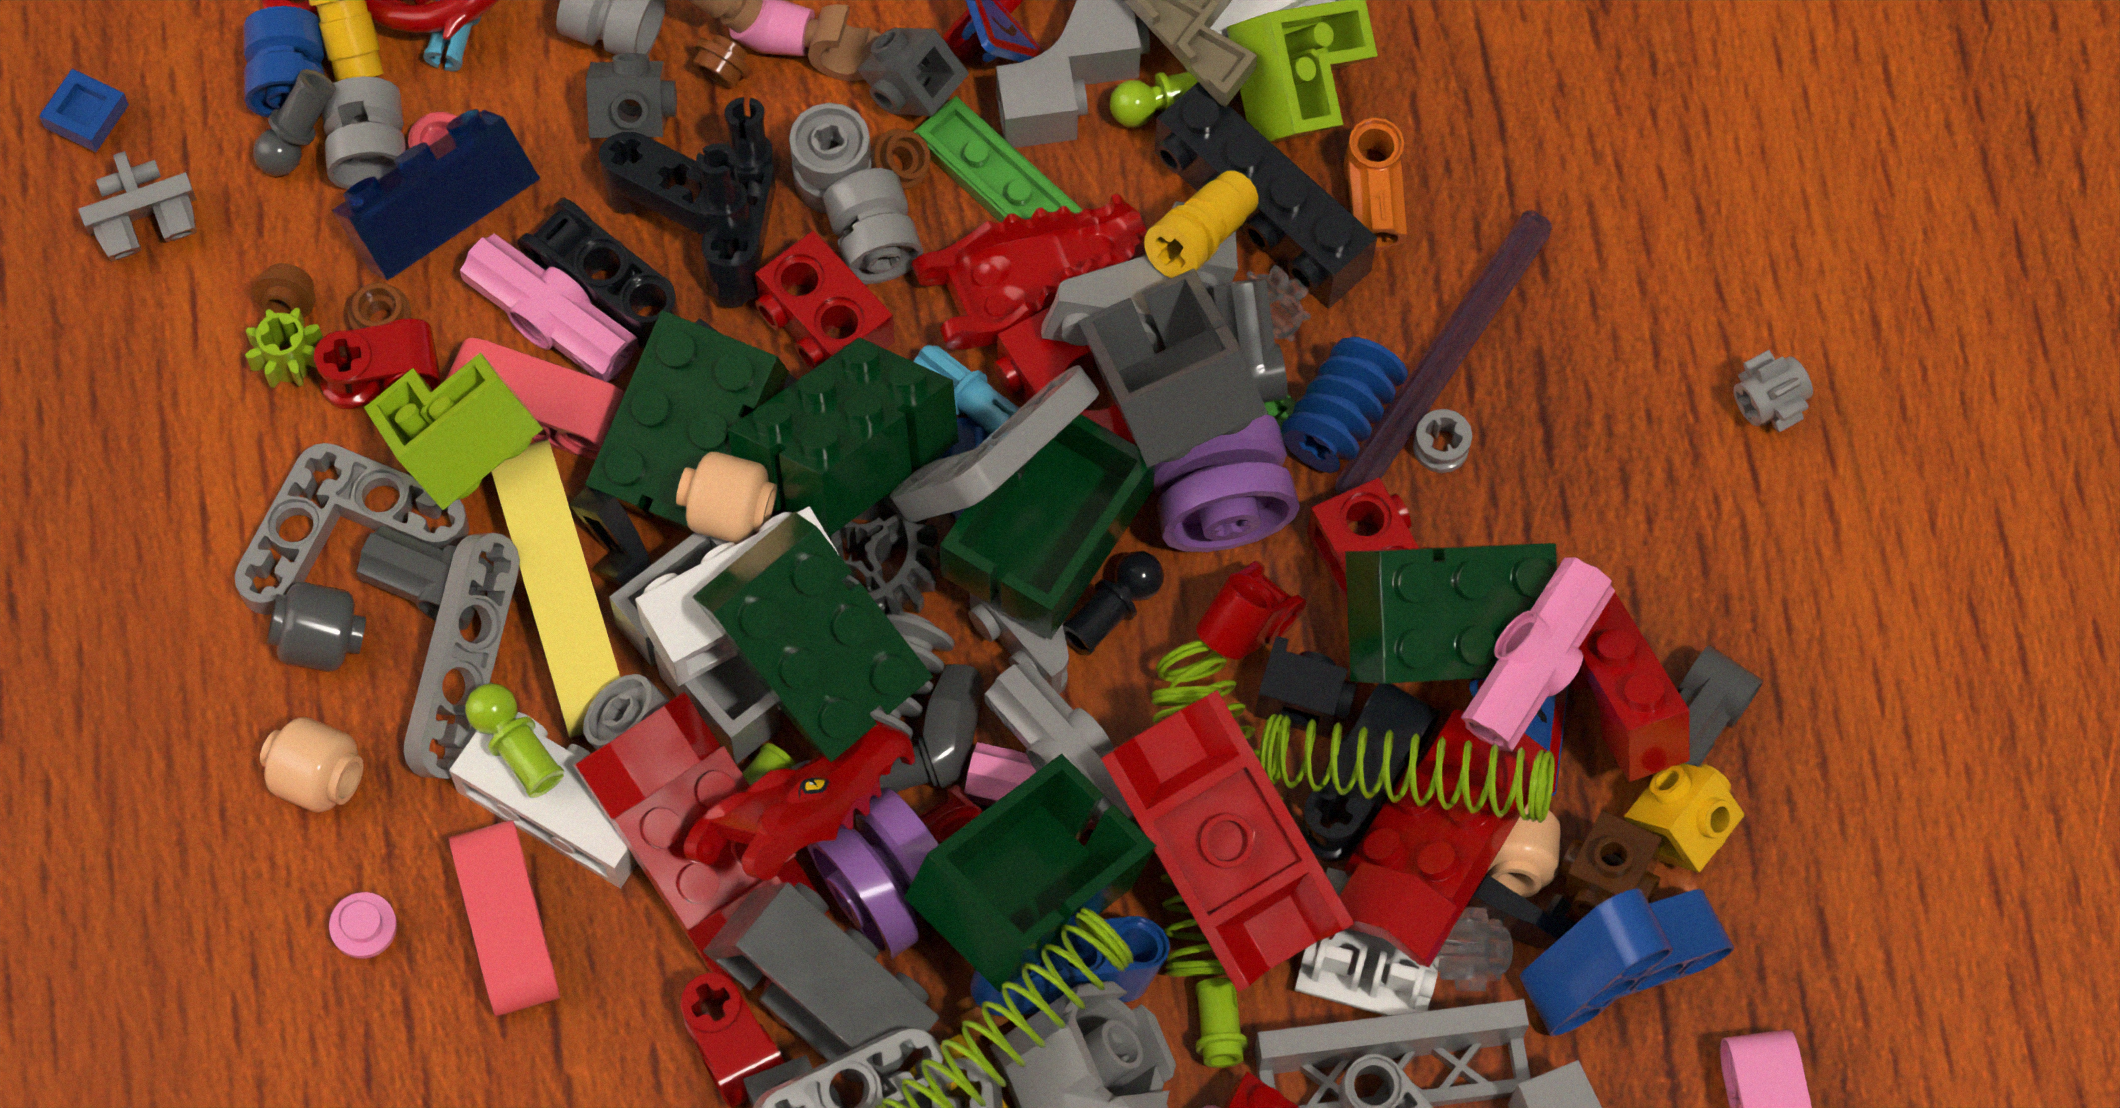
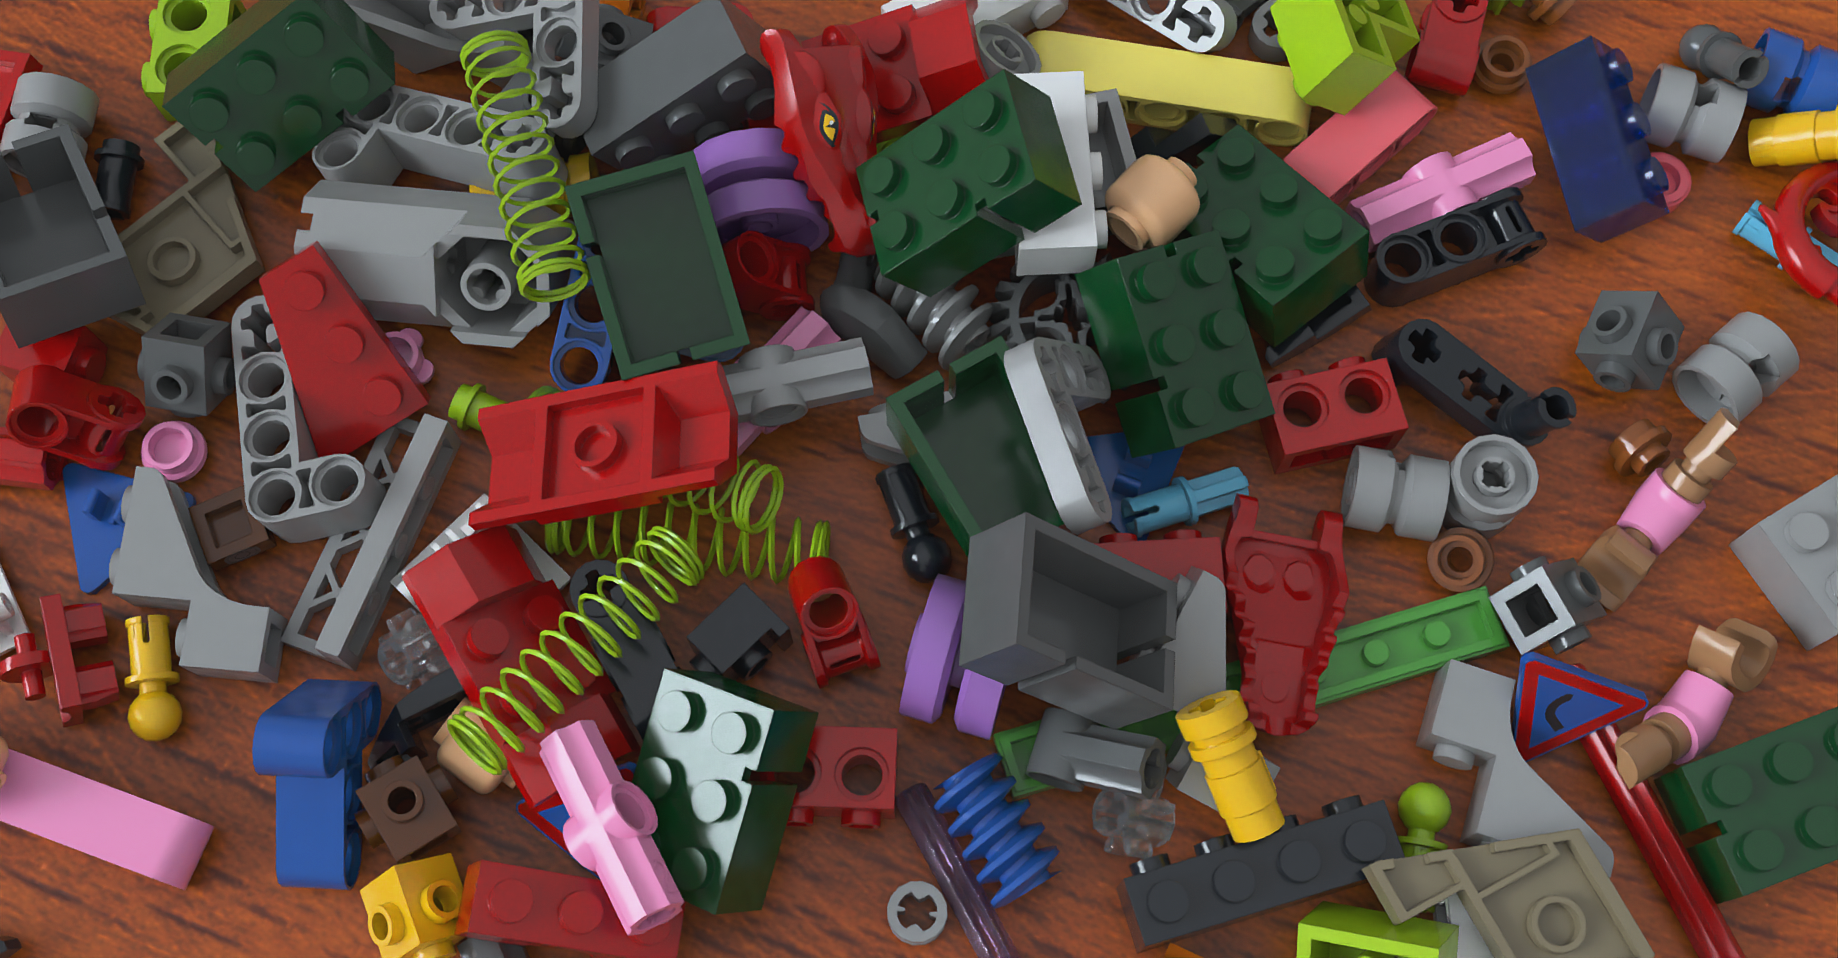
camera: 120 degrees right, 5 degrees up
(642, 169) = (1535, 321): black beam -> none

